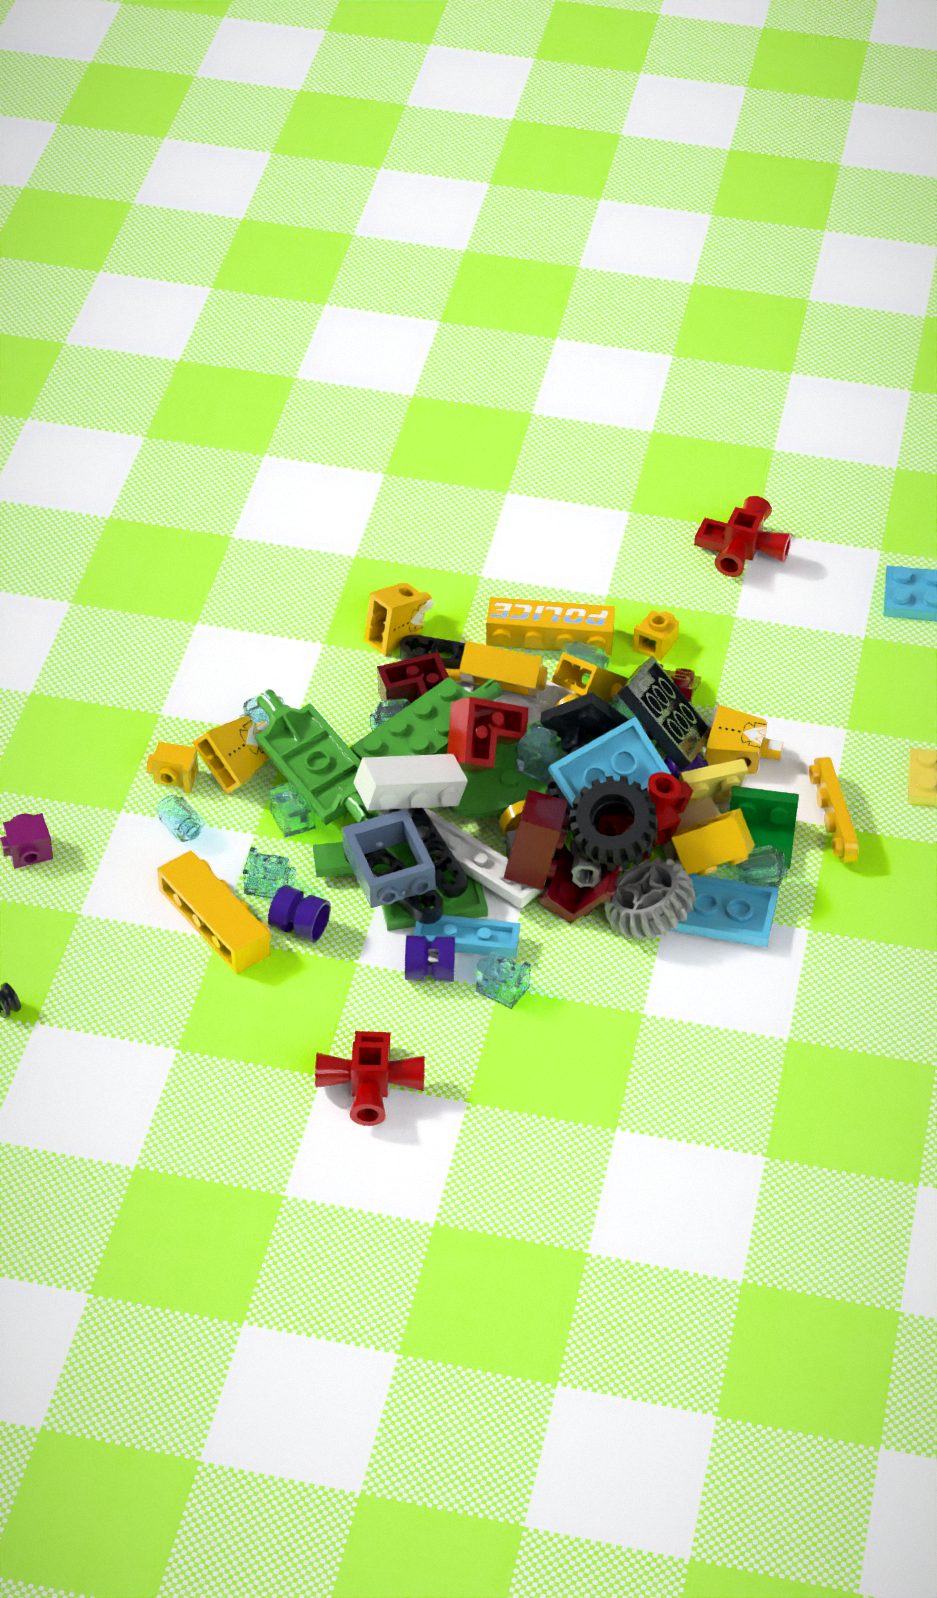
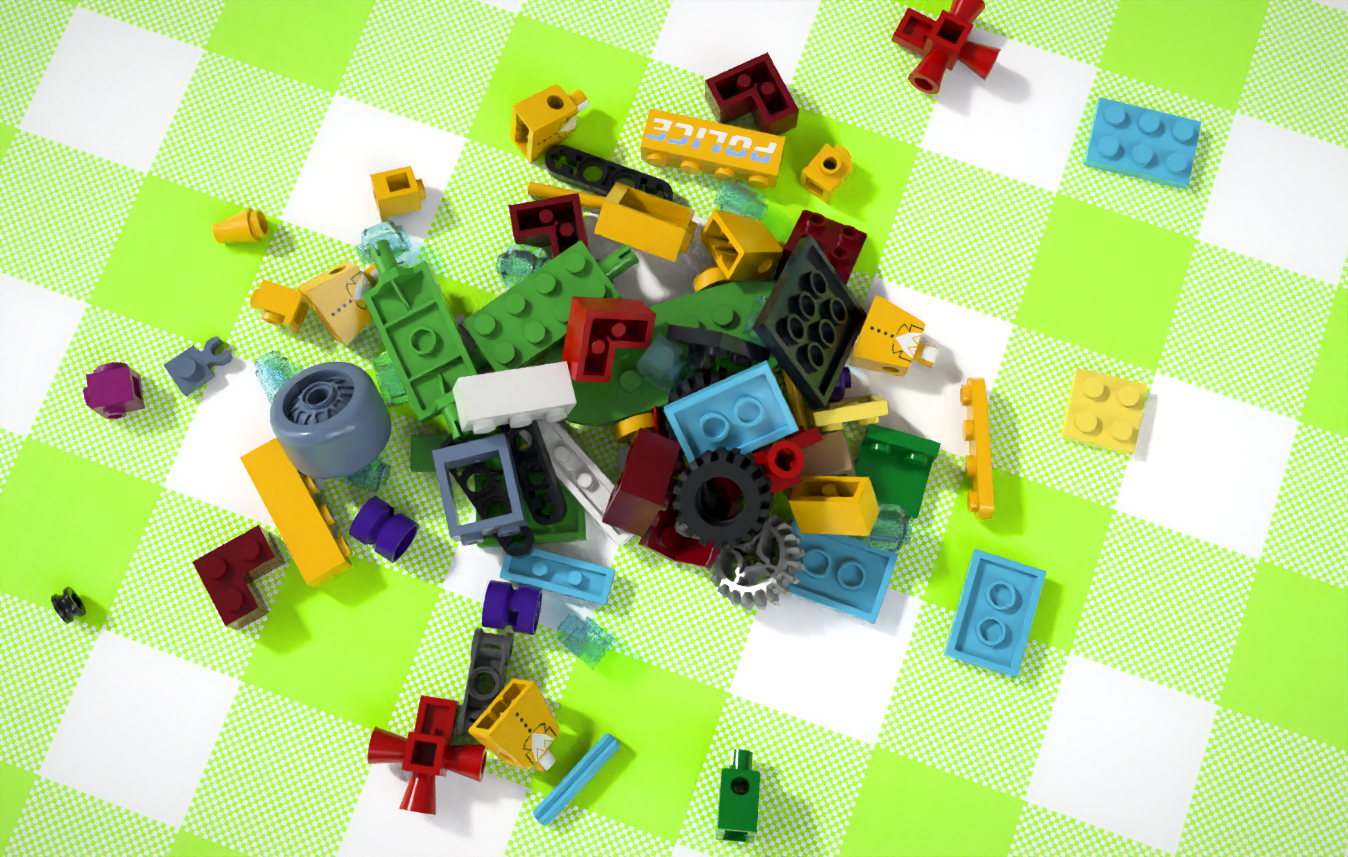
camera: 10 degrees right, 30 degrees up
(97, 822) = (193, 368): none -> sand blue plate
(128, 716) = (242, 227): none -> yellow cone
(165, 959) = (231, 573): none -> dark red brick
(241, 826) = (330, 420): none -> sand blue wheel
(269, 674) = (397, 192): none -> yellow brick
(414, 1017) = (484, 661): none -> dark grey piece
(454, 1038) = (518, 727): none -> yellow torso
(513, 1086) = (576, 779): none -> medium azure axle
(579, 579) = (753, 89): none -> dark red brick
(669, 1063) = (738, 813): none -> green torso
(876, 926) = (994, 613): none -> medium azure plate

